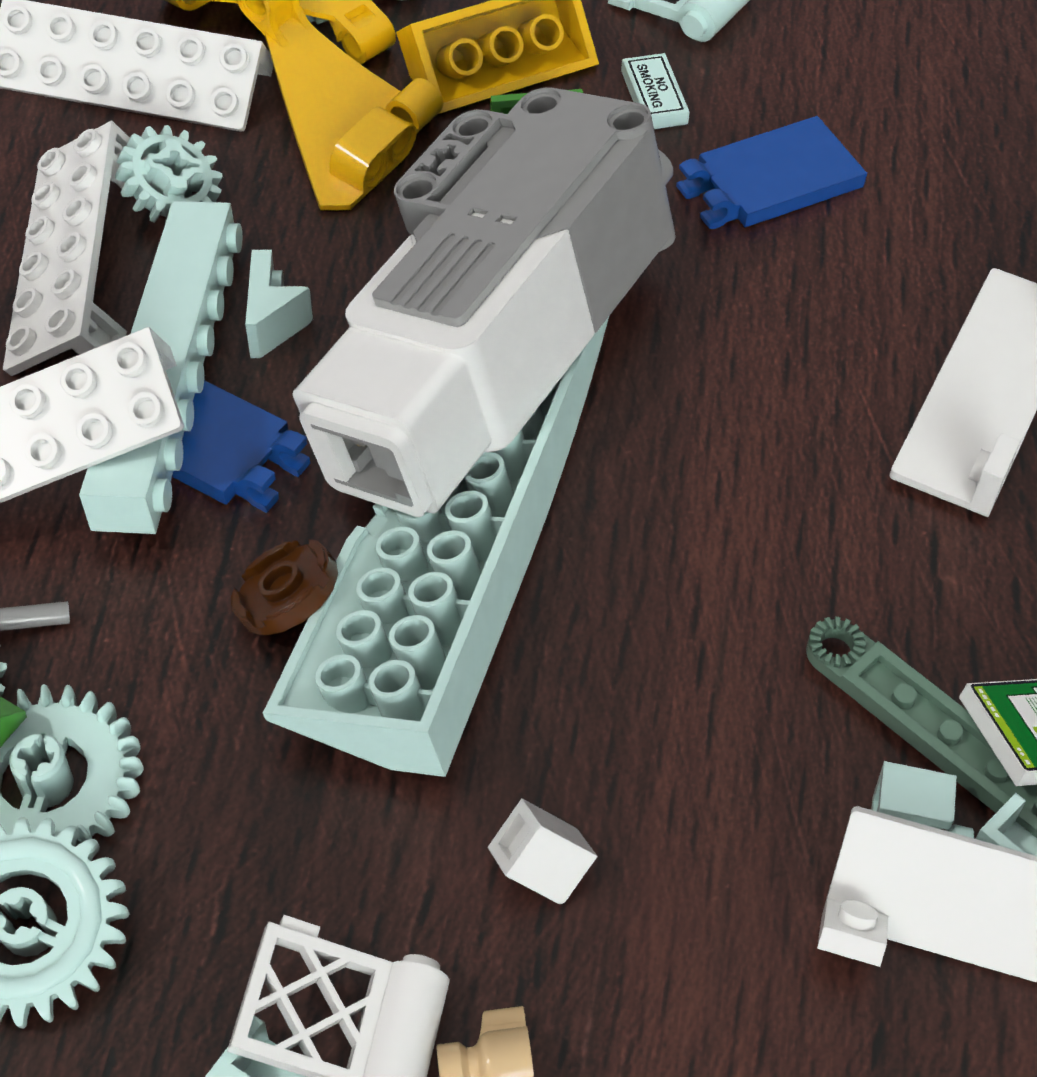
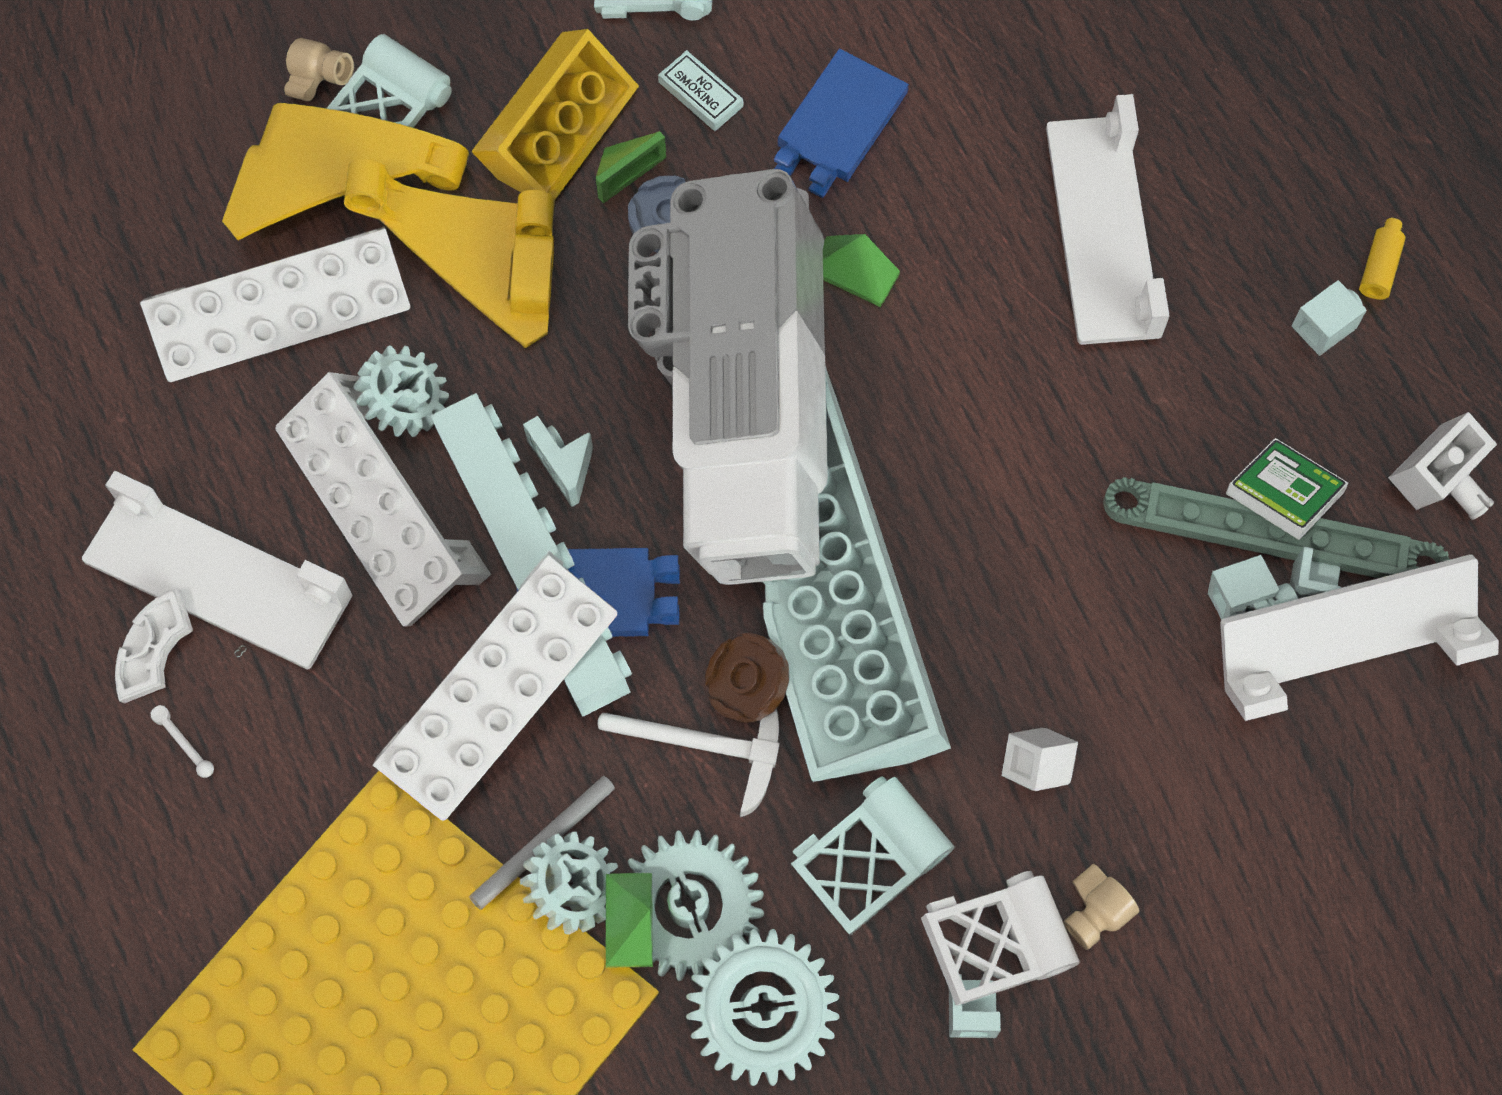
camera: 30 degrees left, 15 degrees up
(244, 673) = (760, 752): none -> white piece
(328, 834) = (899, 827): none -> light aqua piece
(698, 297) = (858, 267): none -> bright green slope

